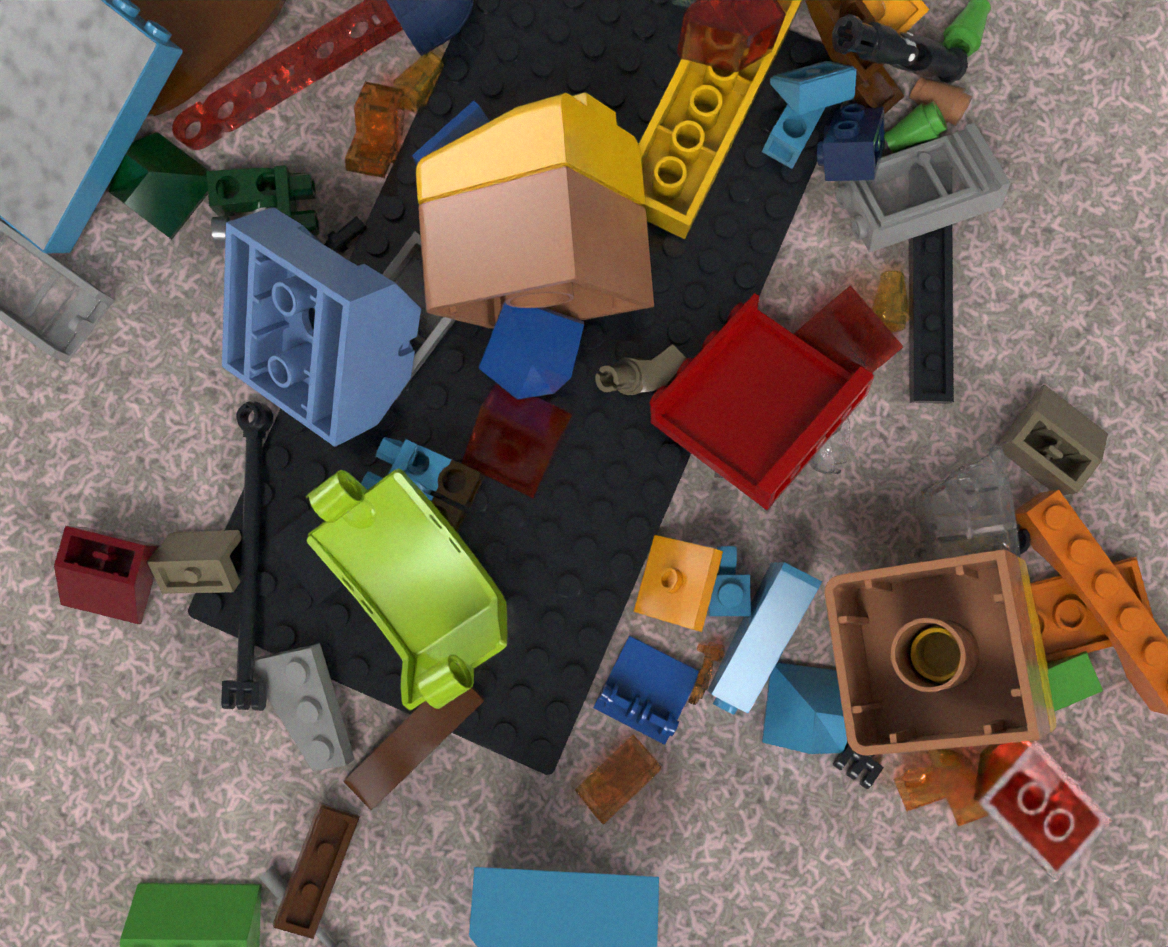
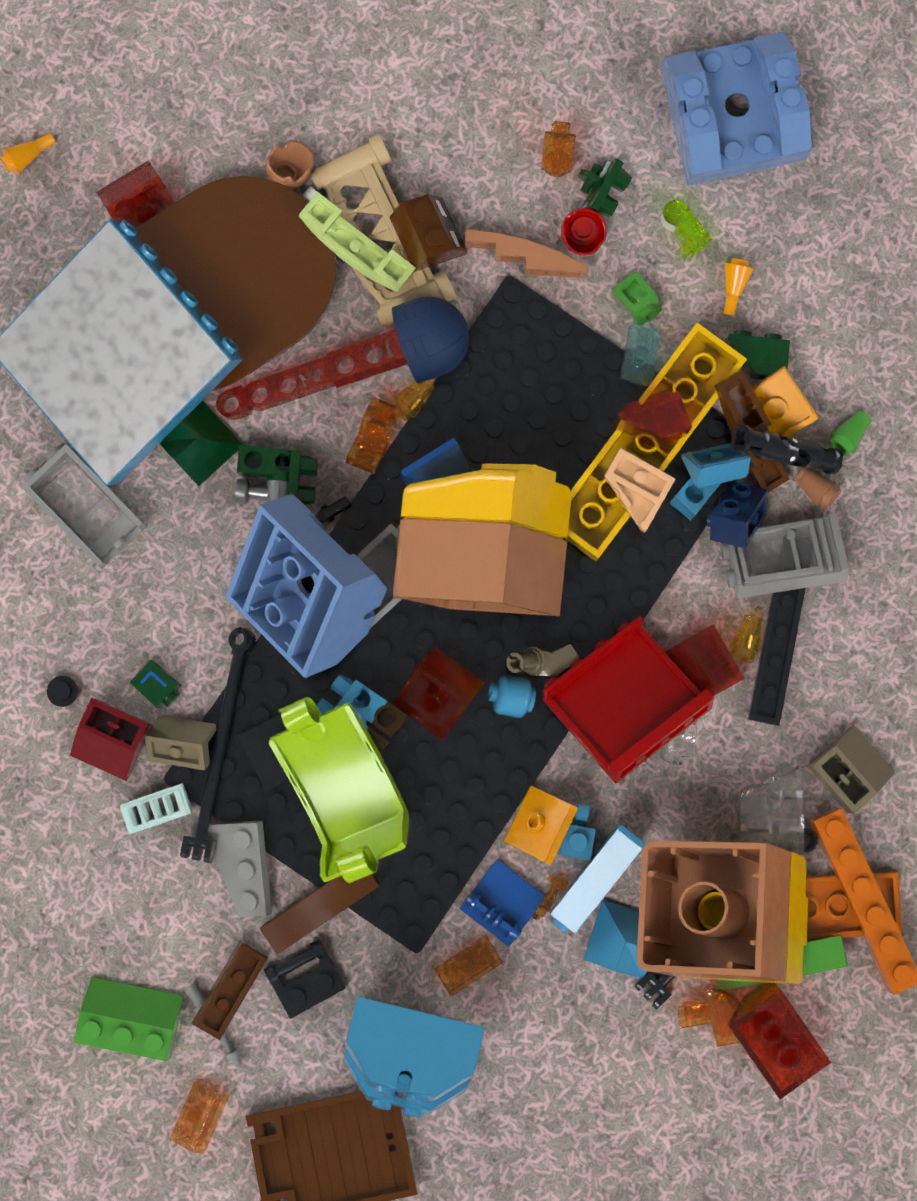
camera: 15 degrees right, 0 degrees up
(38, 525) = (62, 691): none -> black plate
(155, 494) = (156, 685): none -> dark green brick
(157, 664) = (130, 813): none -> light aqua slope
(421, 845) = (309, 988): none -> black plate
(531, 350) = (462, 631): blue slope -> none
(610, 424) = (512, 696): none -> dark azure head
(724, 122) = (638, 486): none -> light nougat wing
(917, 127) = (795, 506): bright green cone -> none

